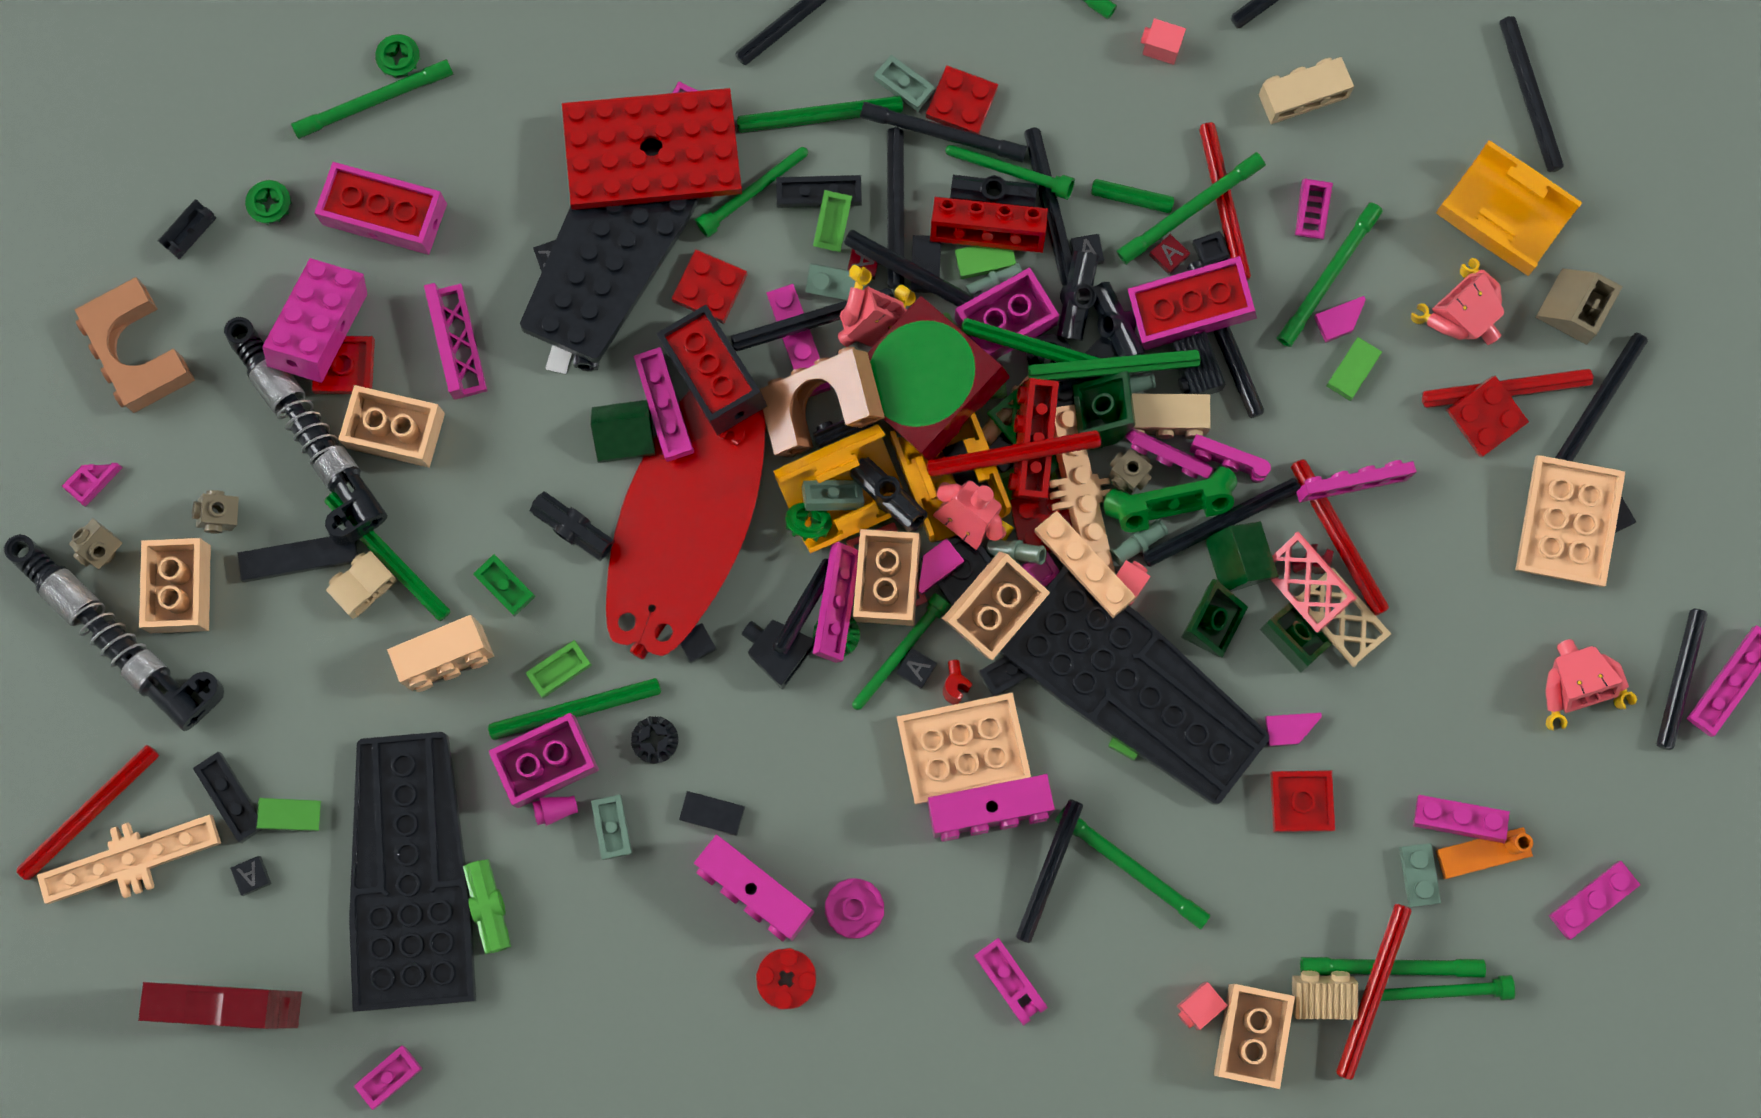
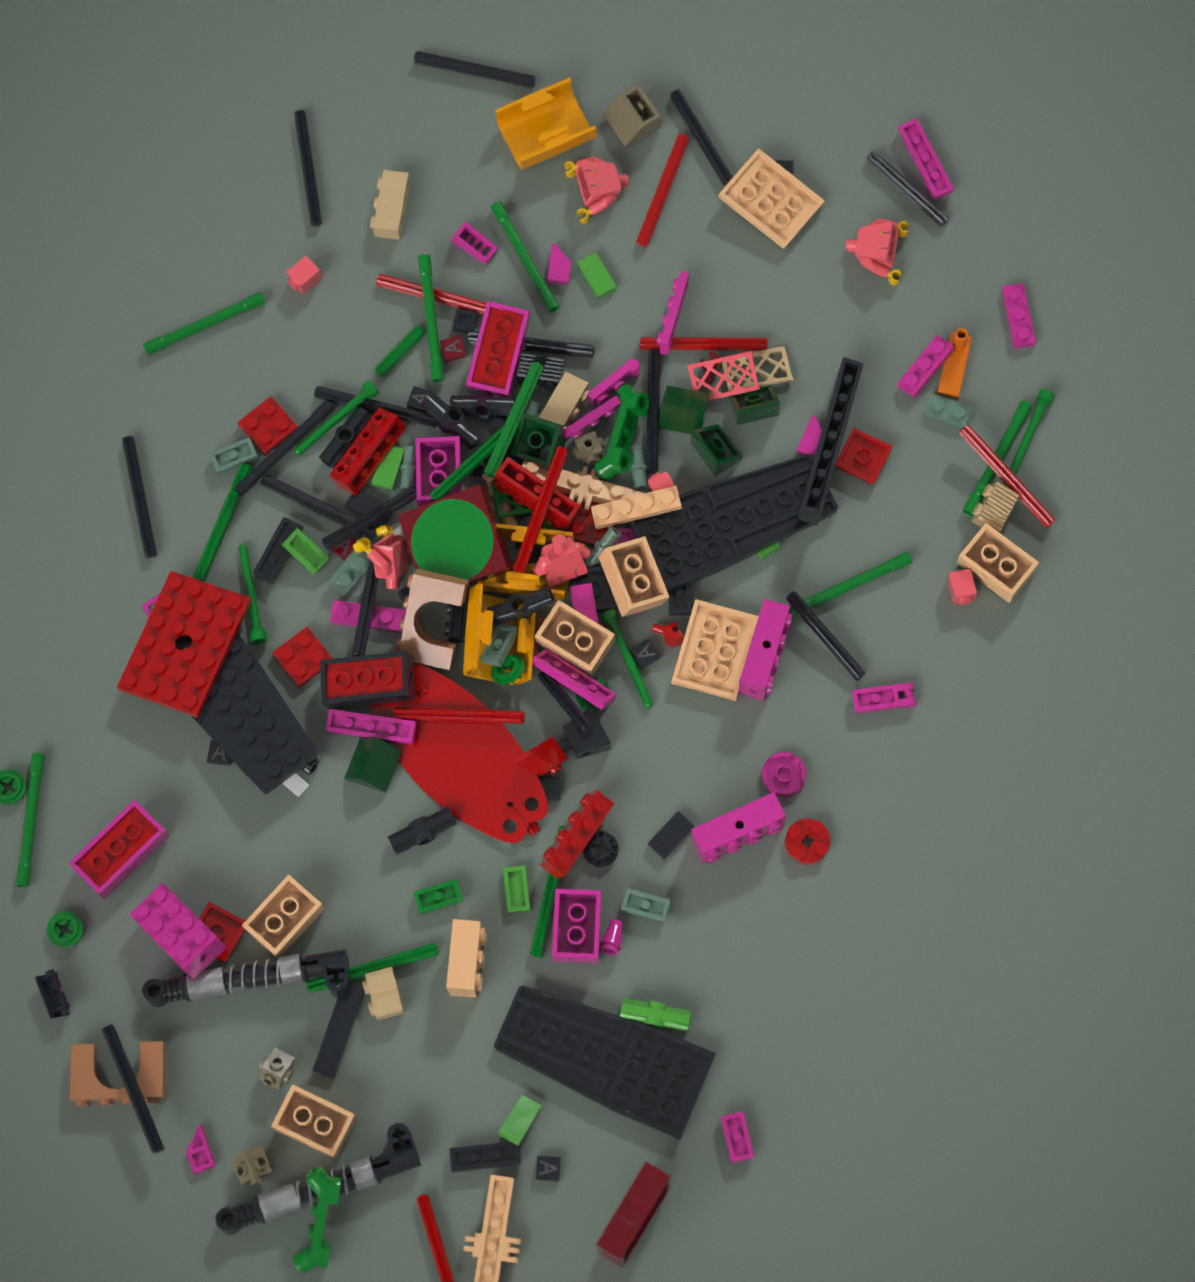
camera: 60 degrees left, 5 degrees down
(91, 642) = (318, 1251): none -> green plate
(114, 369) = (133, 1089): none -> black axle
(445, 344) = (223, 849): dark pink fence -> none
(651, 702) = (577, 833): none -> red brick
(722, 616) = (543, 758): none -> red slope
(724, 495) = (459, 715): none -> red axle
(1296, 751) = (830, 441): none -> black brick
(1487, 416) = (675, 211): red plate -> none

